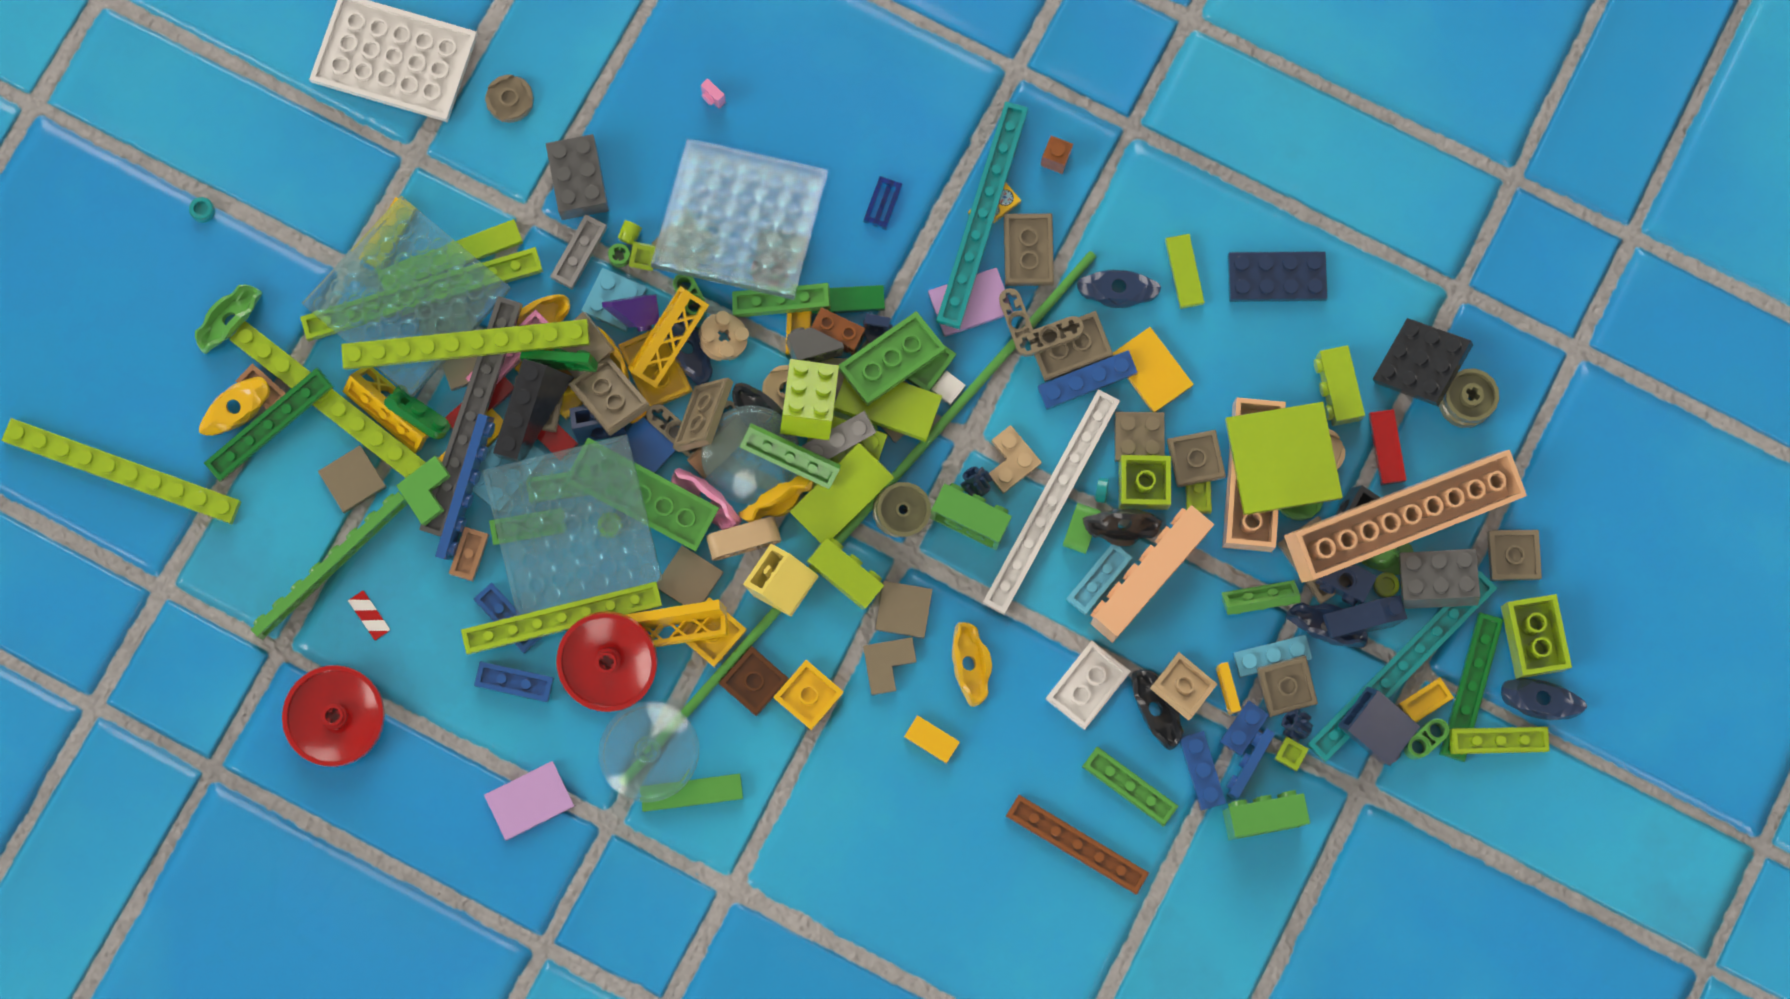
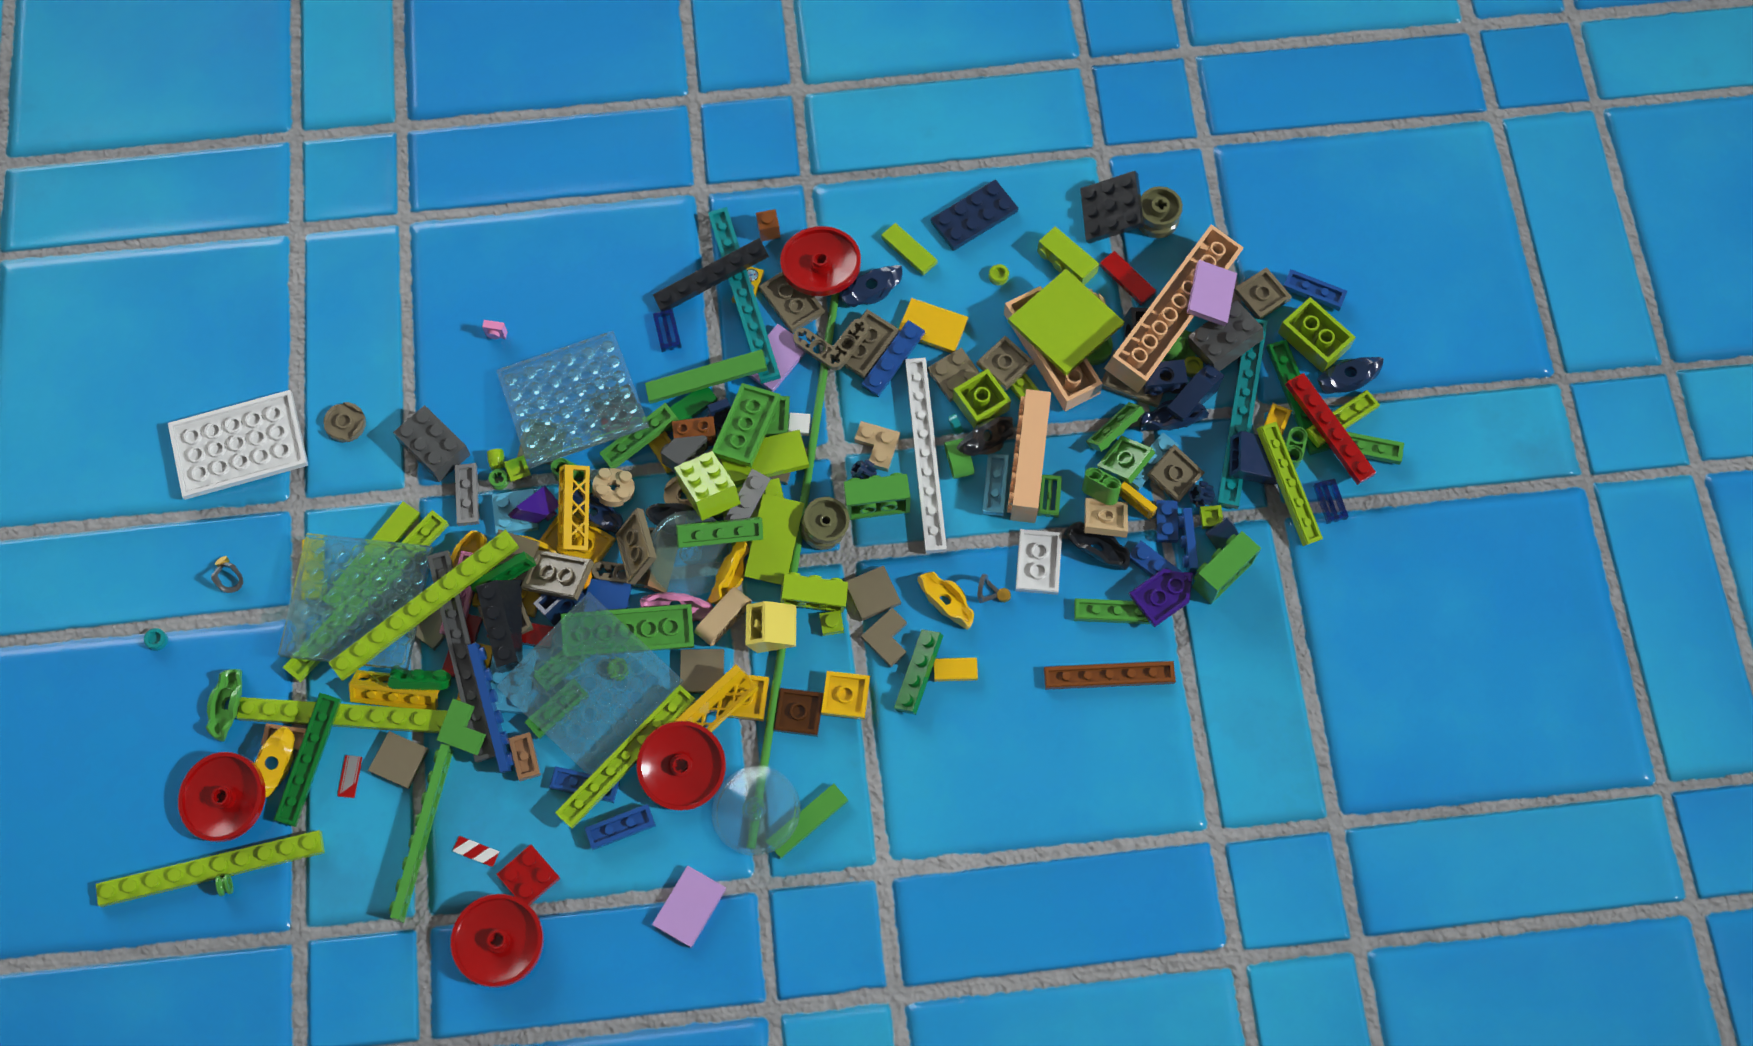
camera: 30 degrees left, 10 degrees down
(123, 496) = (224, 885): none -> bright green bush
(169, 410) = (221, 797): none -> red dish
(298, 465) = (349, 776): none -> sticker
(306, 172) = (224, 562): none -> dark grey piece
(401, 671) = (528, 875): none -> red plate
(844, 613) = (831, 623): none -> lime plate
(887, 280) = (706, 376): none -> bright green tile
(894, 718) = (918, 672): none -> green plate
(962, 173) = (711, 275): none -> black plate
(1029, 695) = (1002, 594): none -> dark grey piece
(1083, 229) = (820, 261): none -> red dish
(1132, 640) = (1048, 511): none -> bright green tile
(1184, 801) = (1162, 595): none -> dark purple tile
(1201, 651) = (1101, 486): none -> bright green beam
(1246, 639) = (1126, 459): none -> bright green plate
(1257, 358) = (998, 274): none -> lime tile
(1290, 778) = (1221, 532): none -> dark blue tile
(1392, 773) = (1289, 483): none -> lime tile
(1418, 836) = (1335, 517): none -> clear blue tile
(1453, 526) = (1212, 293): none -> lavender tile
(1476, 744) = (1330, 428): none -> red plate
(1506, 789) = (1379, 448): none -> bright green plate
(1572, 586) = (1316, 289): none -> blue plate

